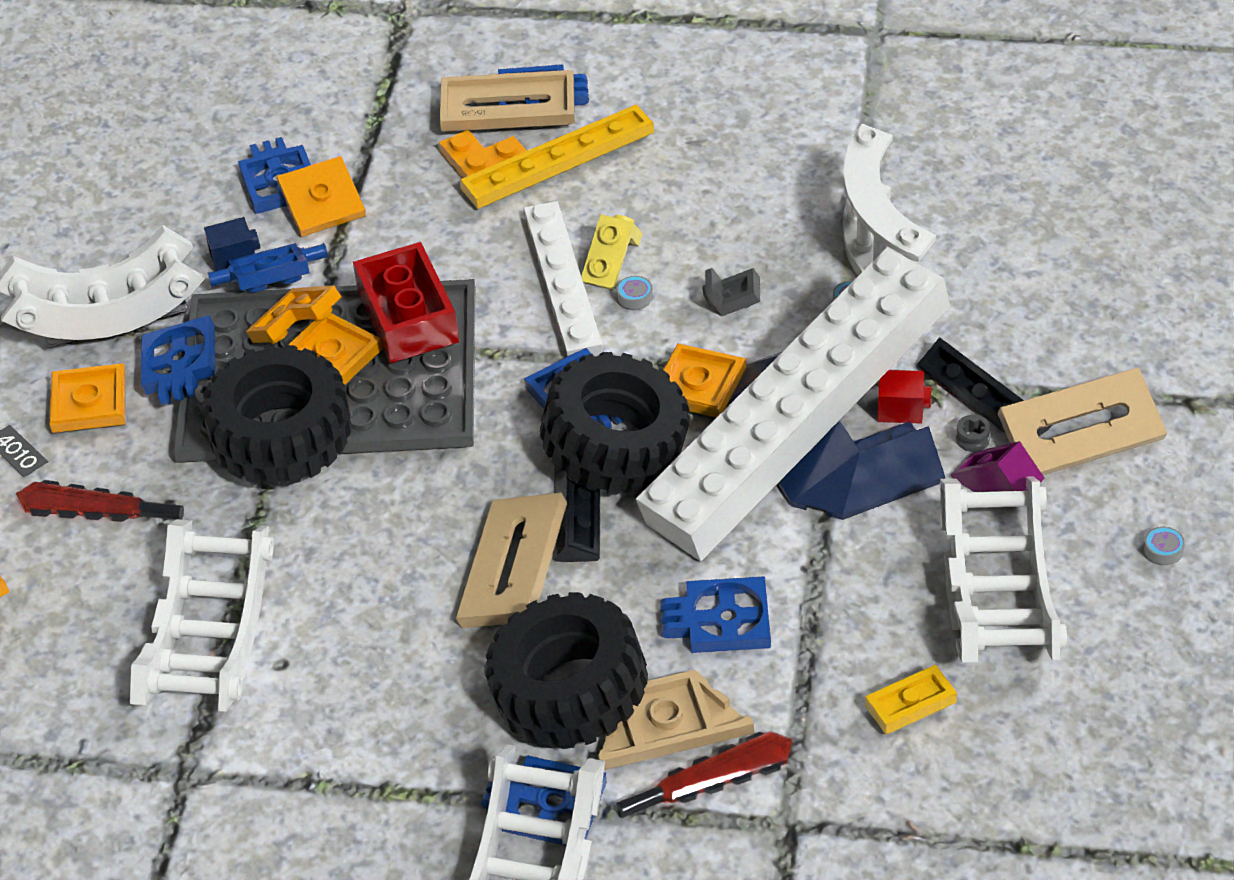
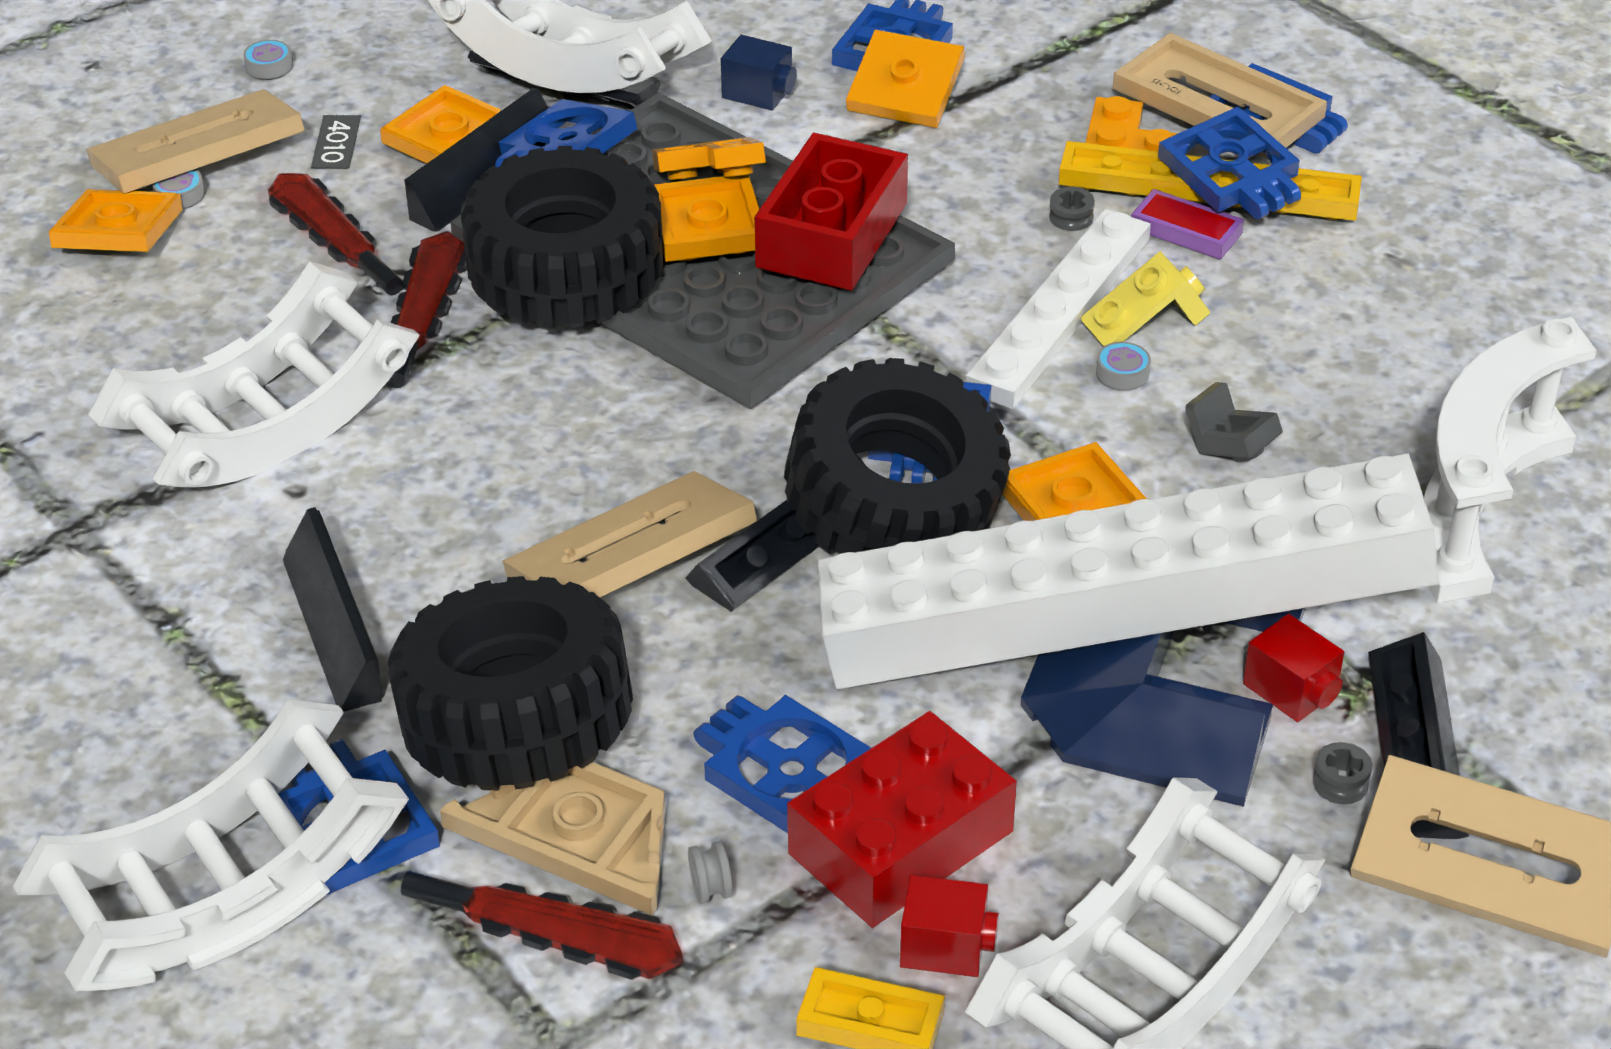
camera: 40 degrees right, 5 degrees down
(138, 411) = (441, 186): none -> black slope
(199, 495) = (427, 287): none -> clear red sword
(269, 266) = (770, 112): blue plate -> none
(403, 709) = (332, 615): none -> black slope
(498, 211) = (1071, 208): none -> dark grey bush
(573, 188) = (1189, 223): none -> tile
(600, 145) = (1256, 189): none -> blue piece
(761, 691) = (710, 872): none -> light grey bush
(817, 598) = (897, 811): none -> red brick
(895, 633) = (946, 926): none -> red brick
(997, 469) = (1312, 826): magenta slope -> none

